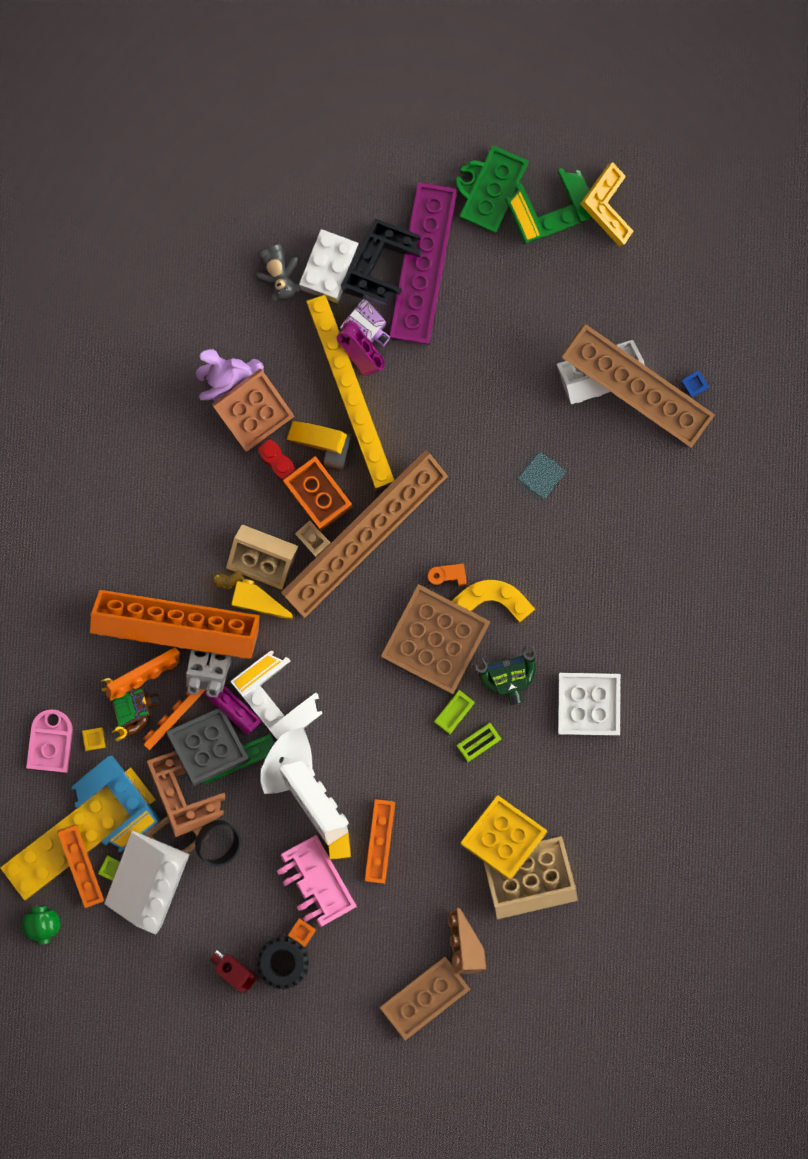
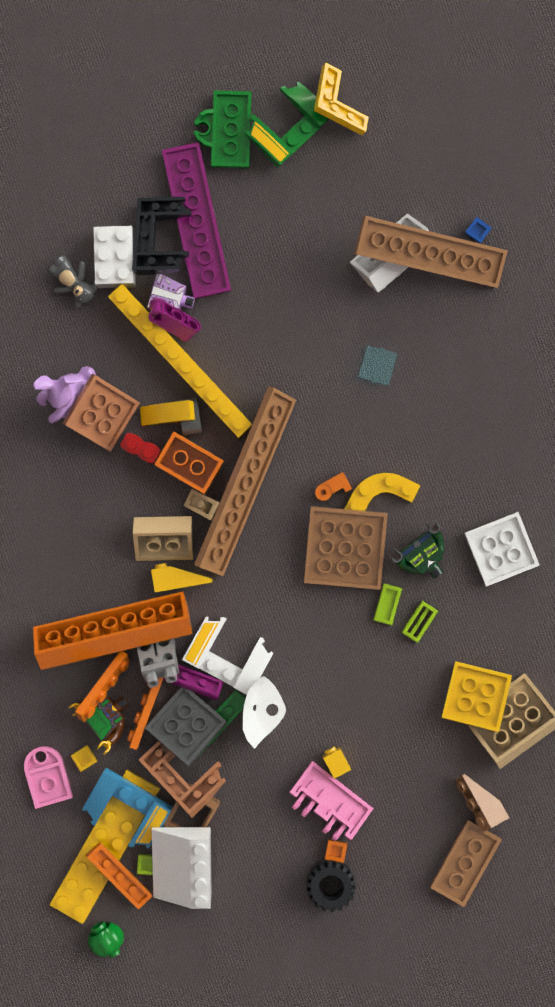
camera: 30 degrees left, 5 degrees up
(227, 581) = (141, 572): clear yellow arm -> none
(230, 855) = (217, 799): black tyre -> none
(239, 976) = (298, 913): dark red torso -> none
(314, 801) = (300, 735): white slope -> none
(380, 841) = (370, 743): orange plate -> none

